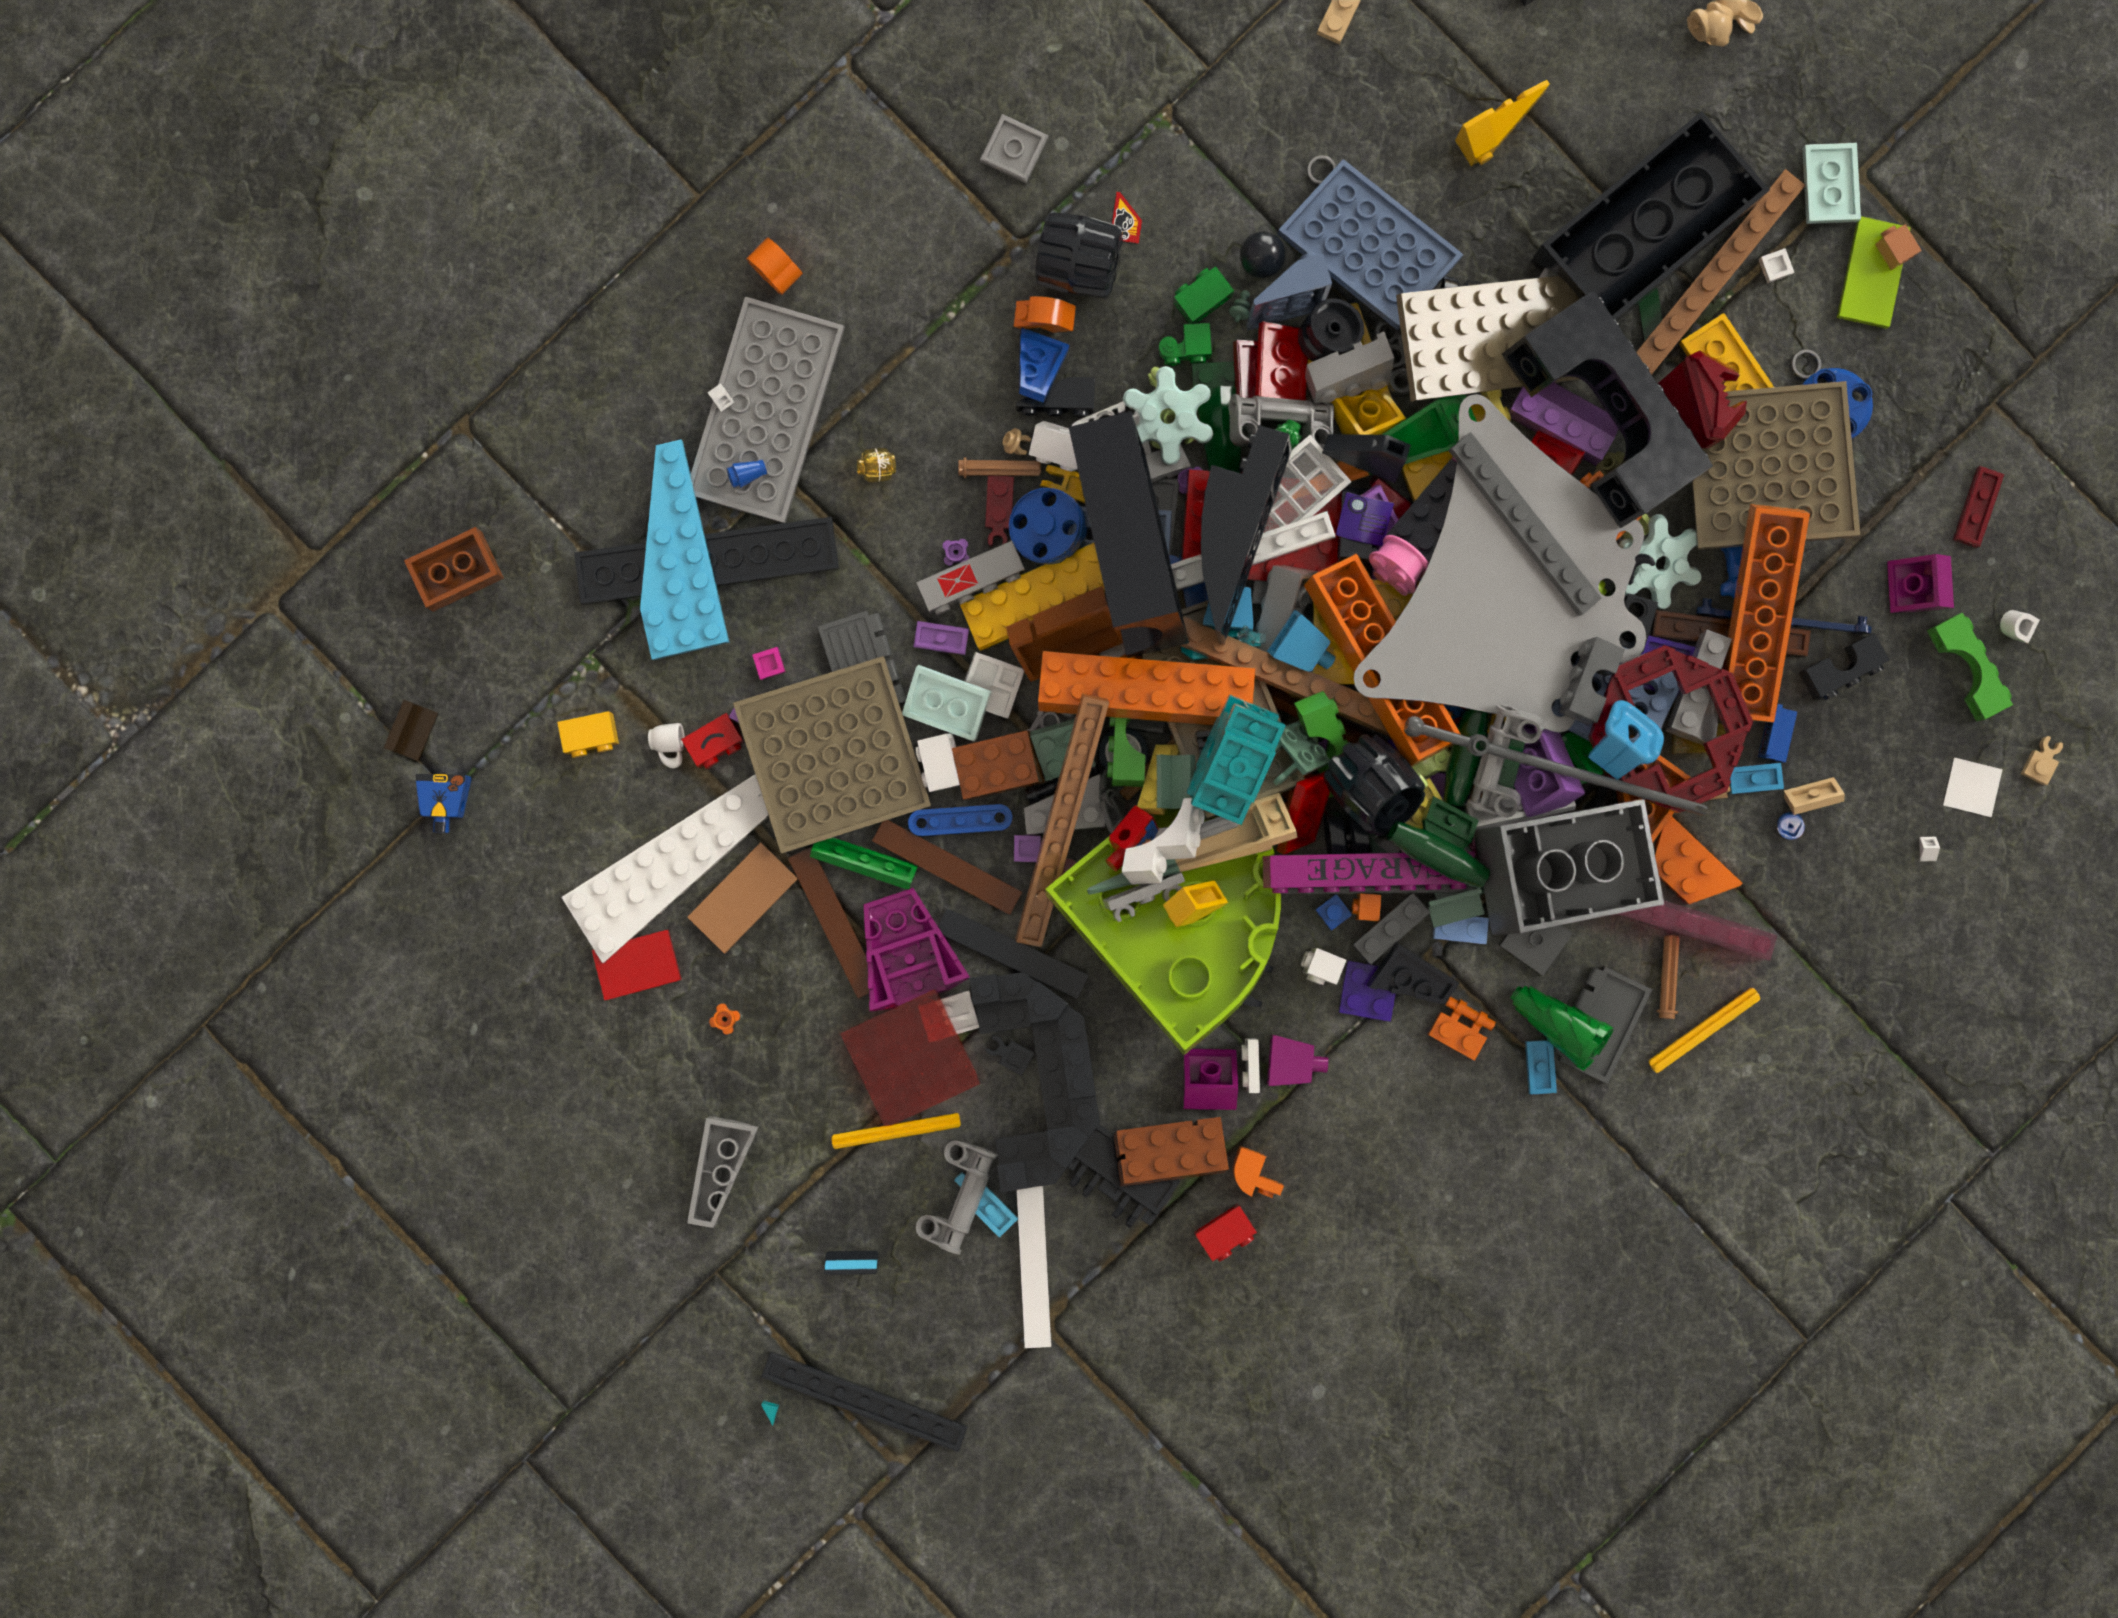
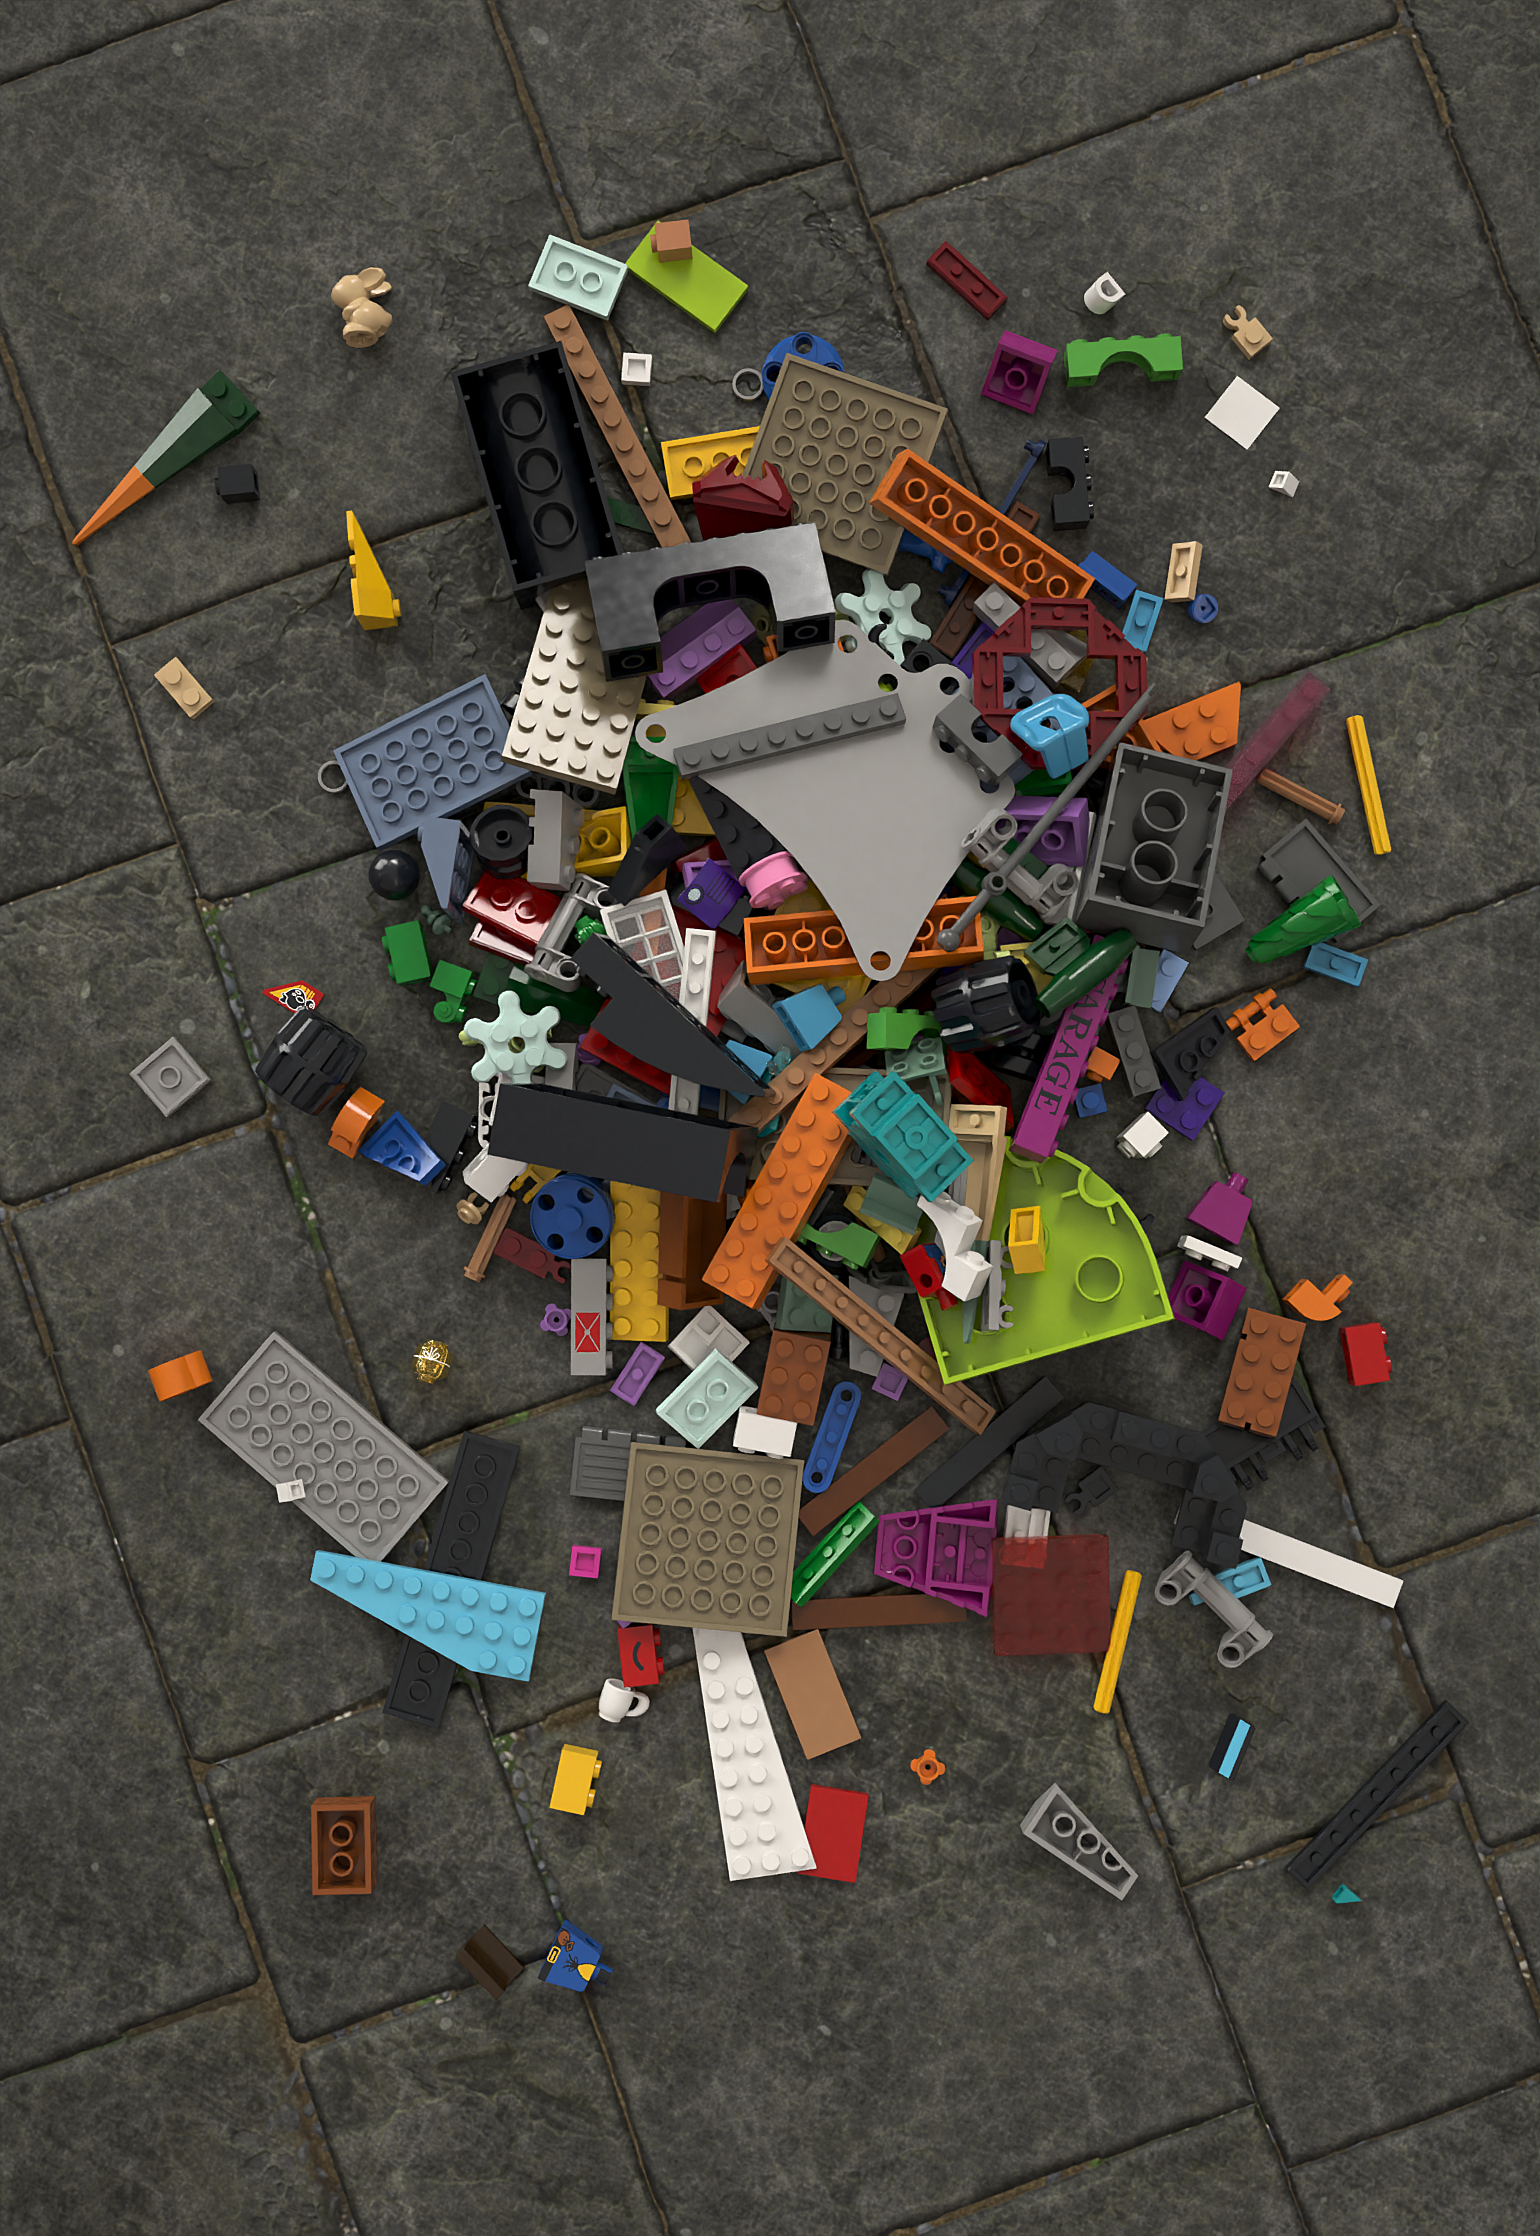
camera: 60 degrees left, 0 degrees up
(745, 472) = (380, 1502): blue cone -> none

